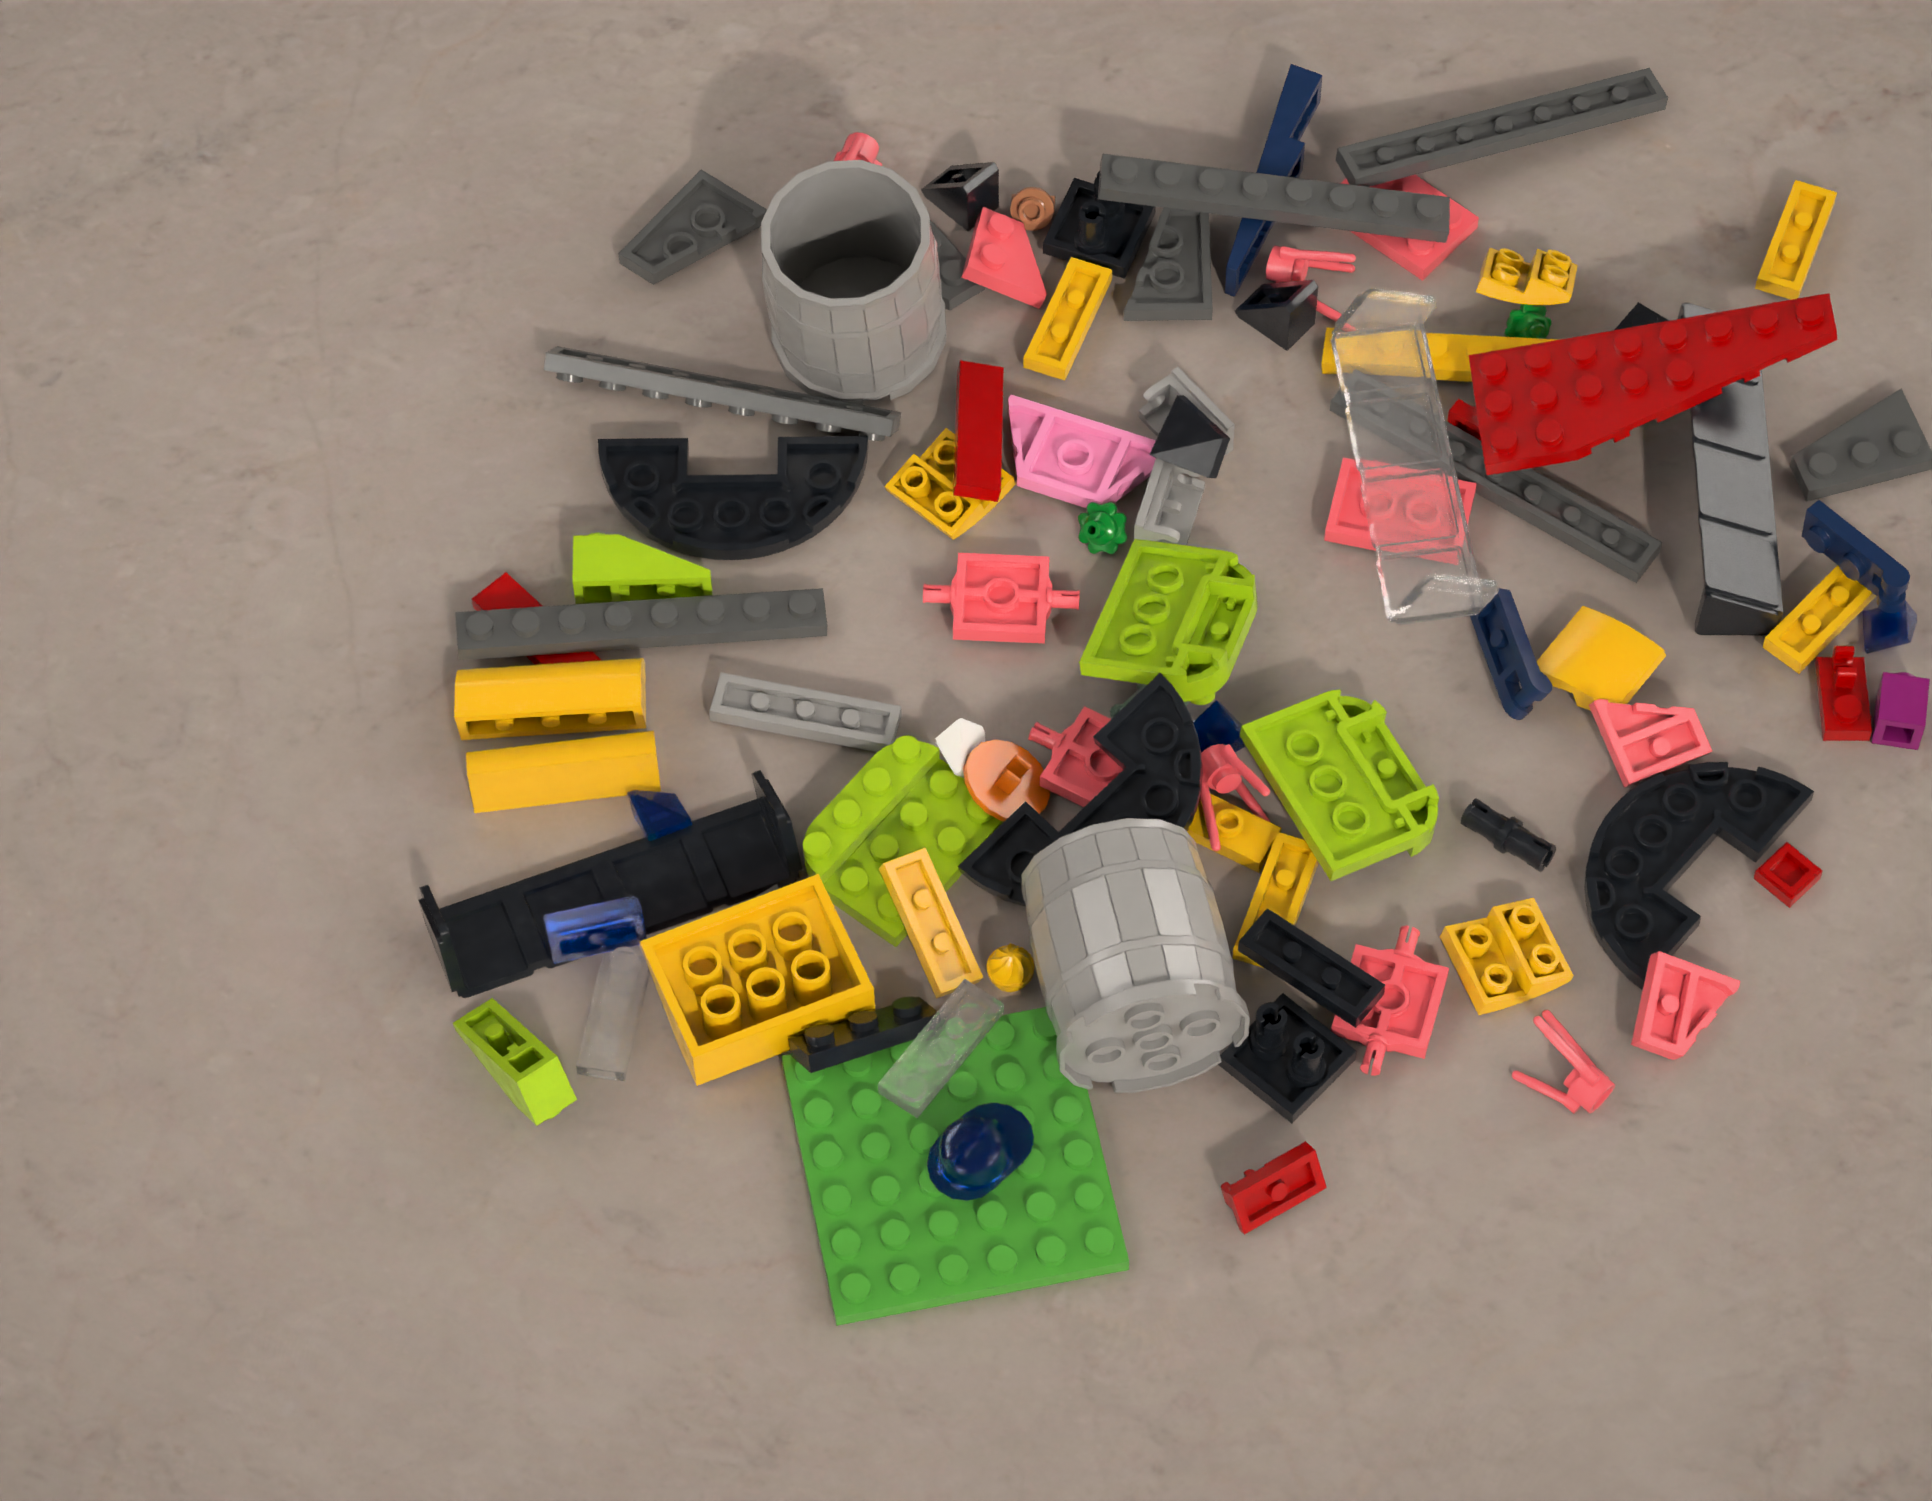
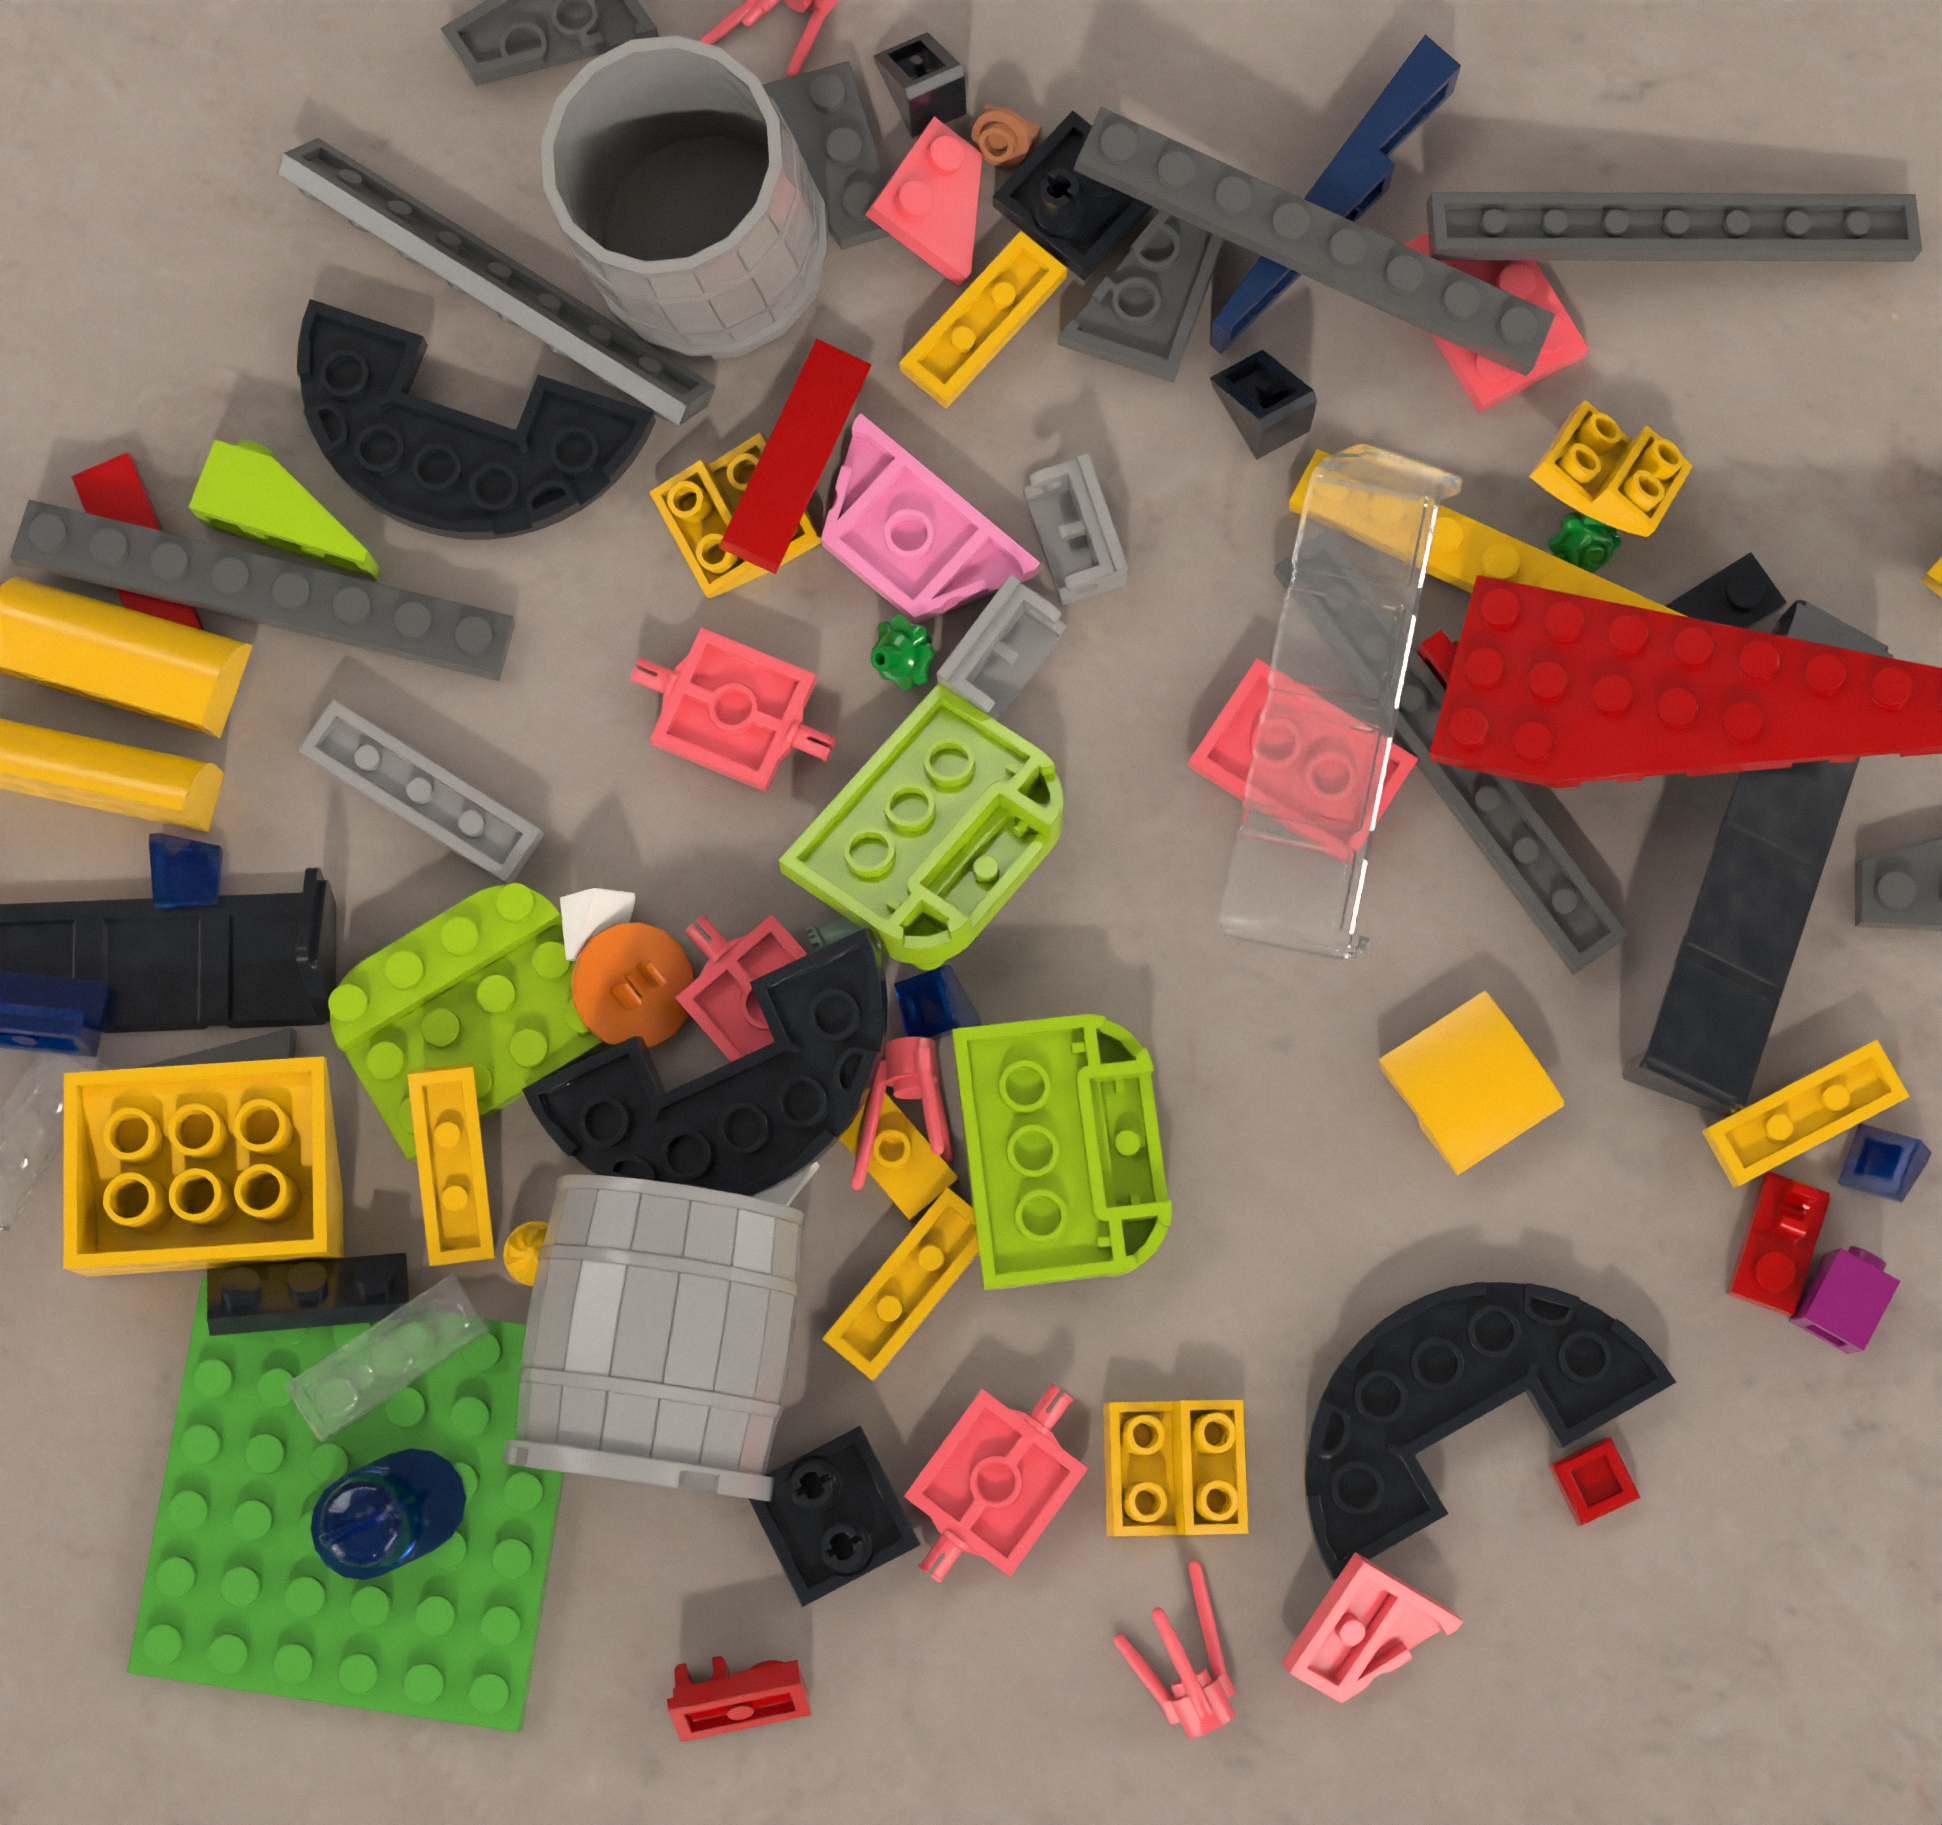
camera: 25 degrees right, 20 degrees up
(1191, 440) = (1055, 574): black slope -> none
(1292, 264) = (1308, 340): coral plant -> none
(1311, 967) = (902, 1415): black plate -> none
(1508, 835) = (1248, 1294): black pin -> none
(1510, 656) = (1357, 1036): dark blue plate -> none
(1649, 738) = (1490, 1223): coral wing -> none
(1856, 556) = (1878, 1063): dark blue plate -> none

